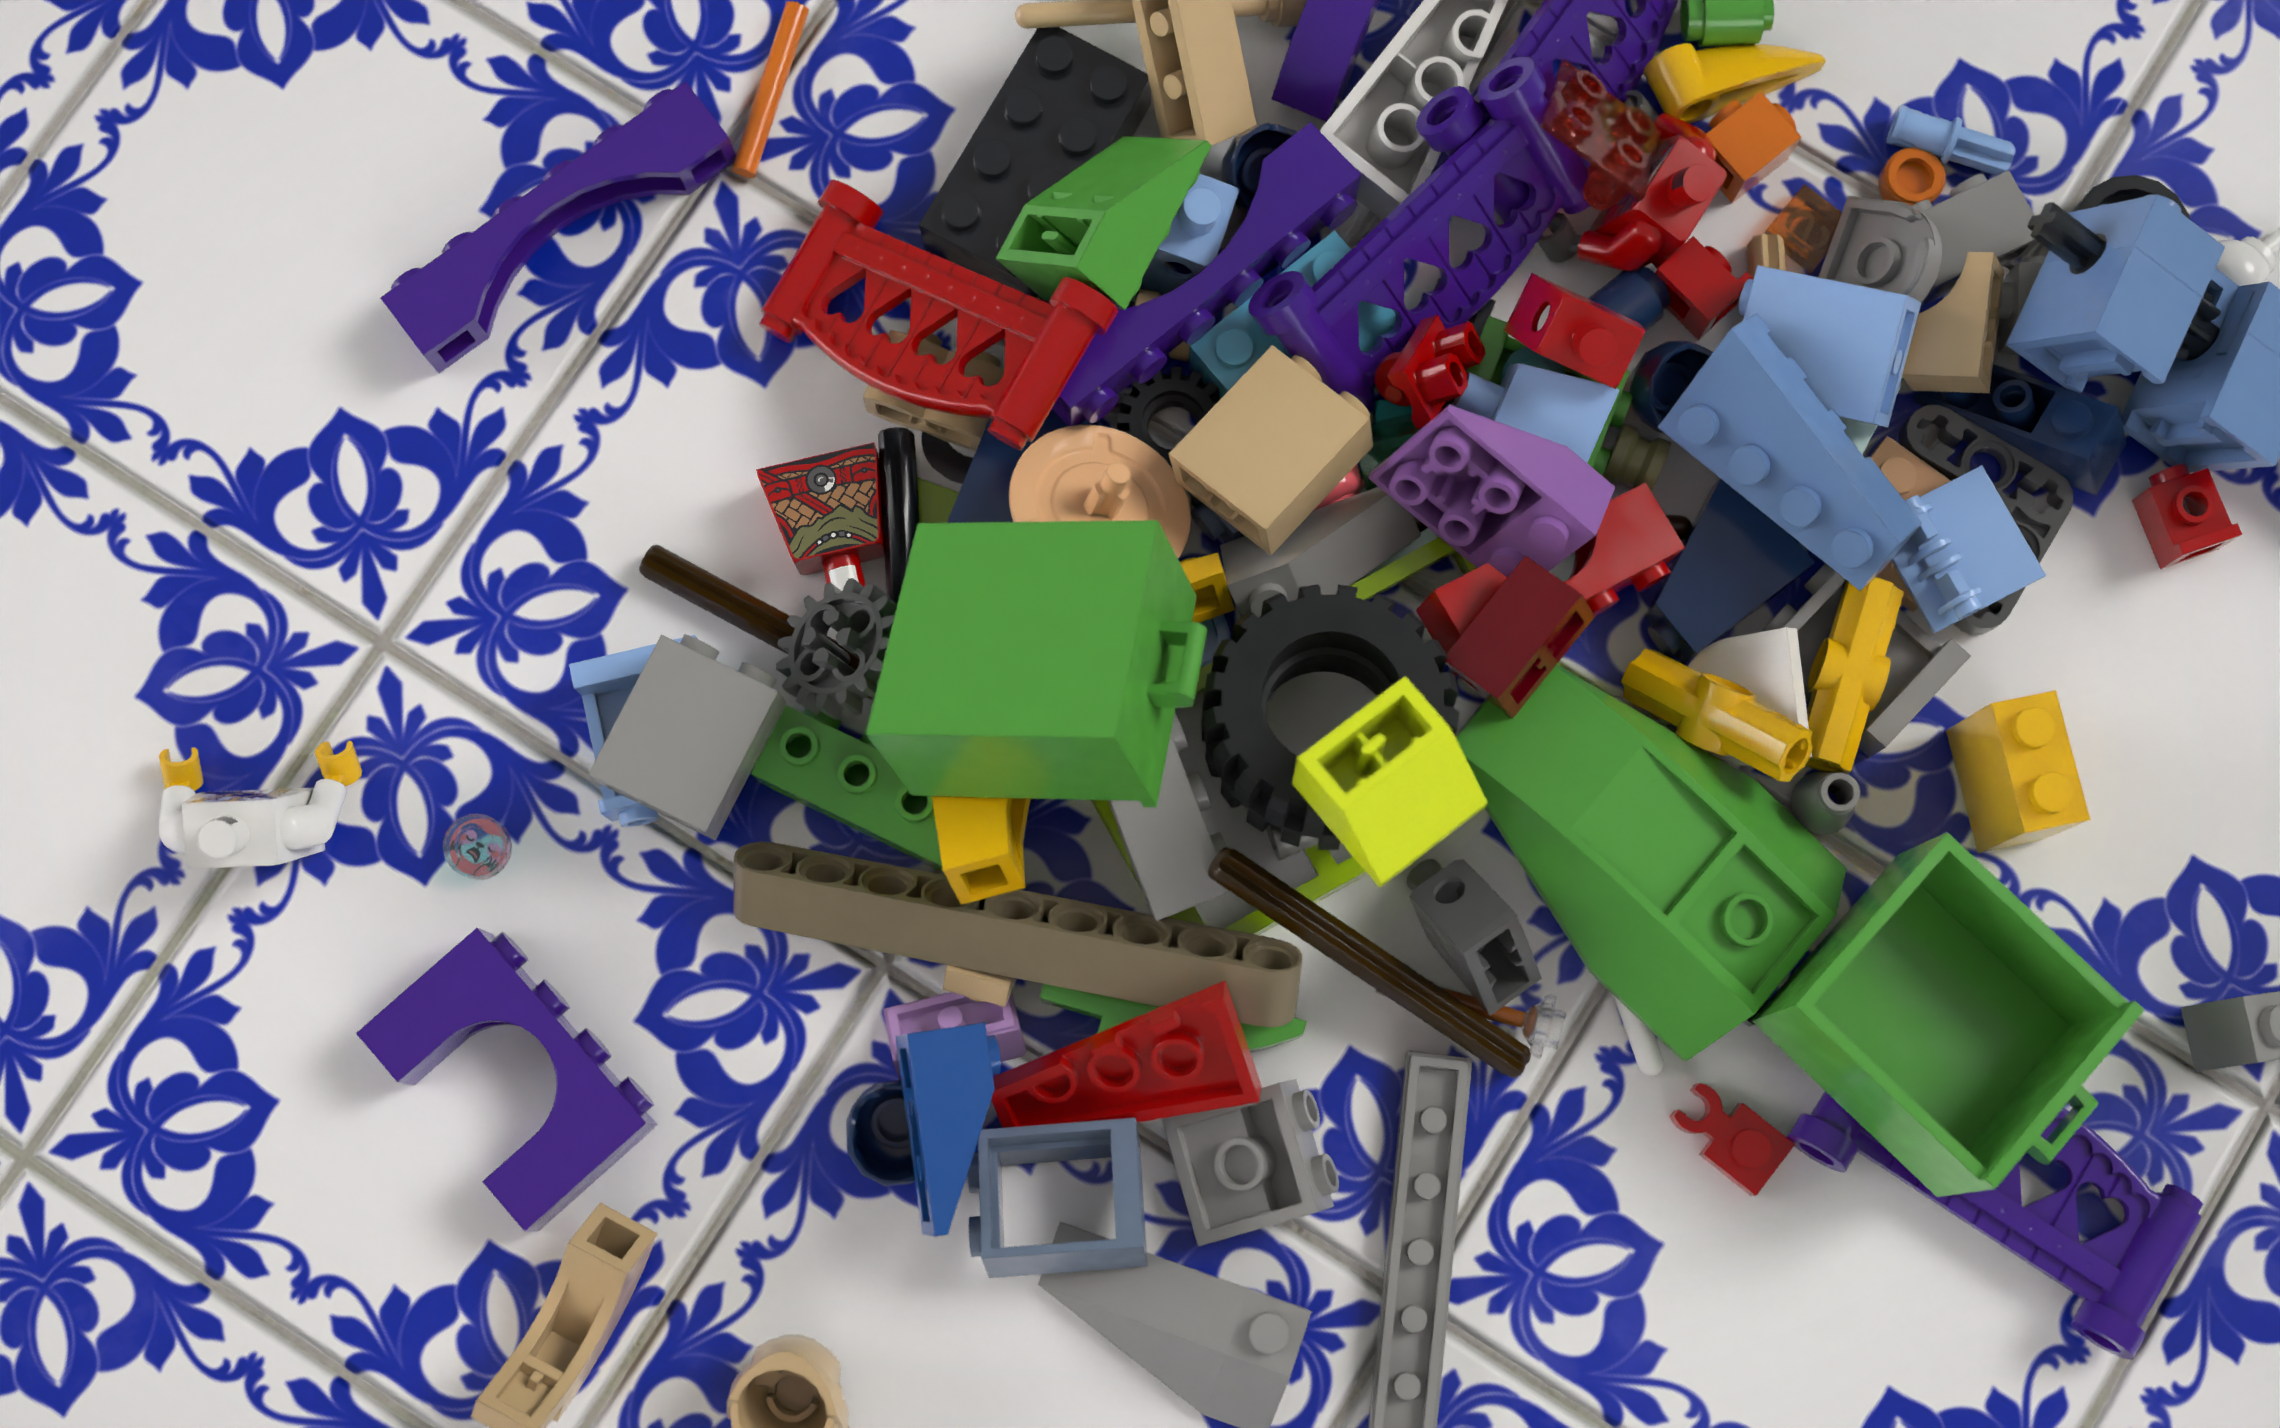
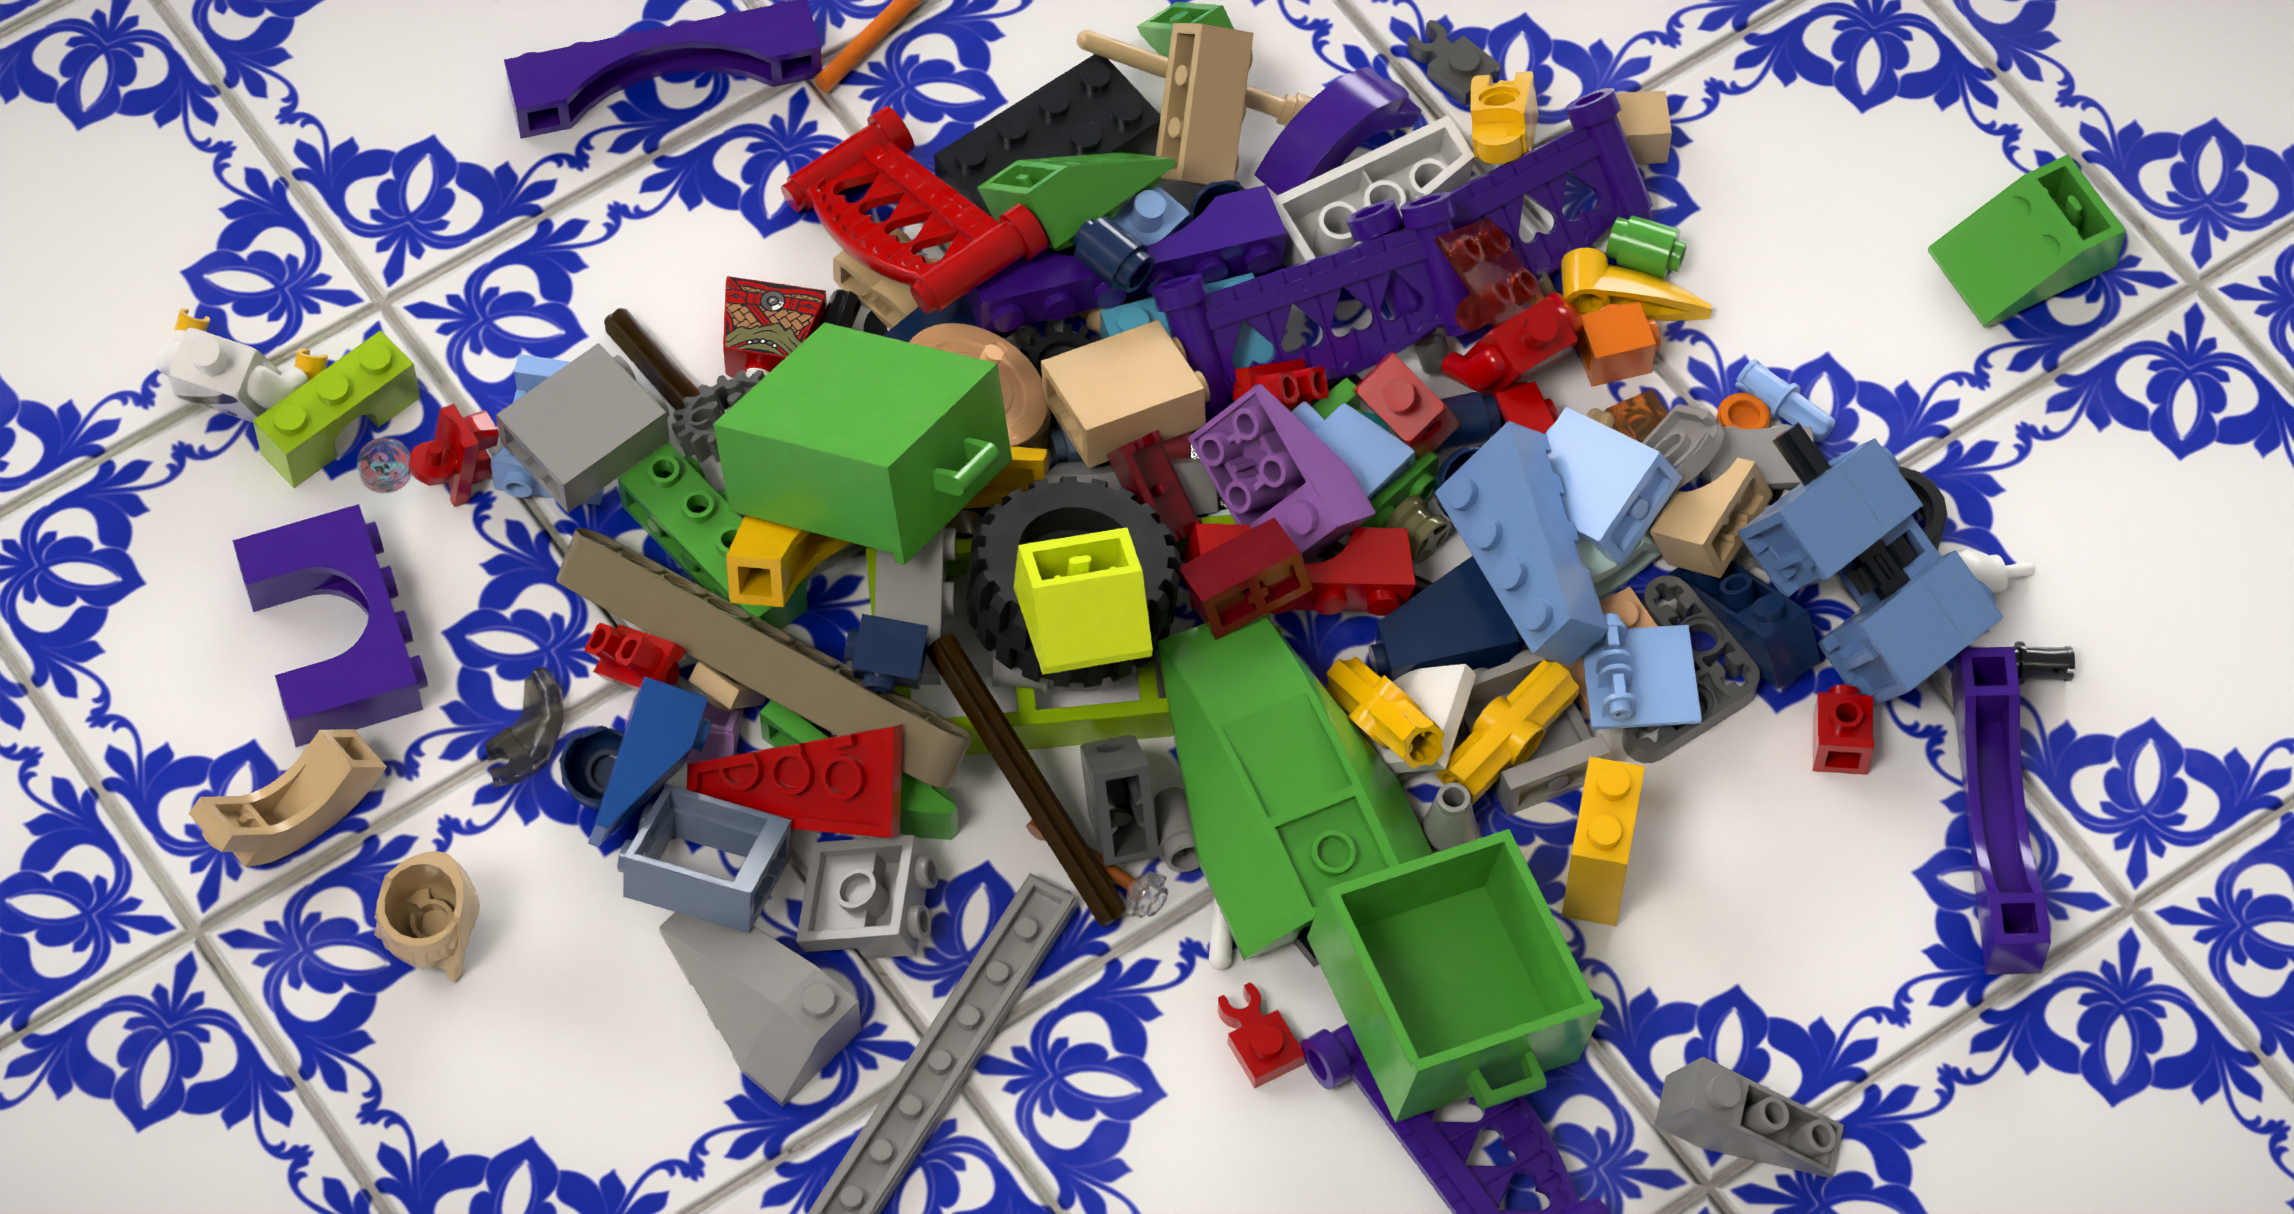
camera: 20 degrees right, 20 degrees down
(373, 839) = (303, 427): none -> lime arch
(554, 819) = (456, 453): none -> red hips
(796, 1102) = (534, 733): none -> clear smoke piece
(871, 985) = (631, 655): none -> red hips
(1172, 903) = (887, 653): none -> dark blue brick
(1193, 290) = (1112, 254): none -> dark blue brick
(1359, 553) = (1149, 474): none -> dark red hinge
(1545, 937) = (1175, 831): none -> light grey cone

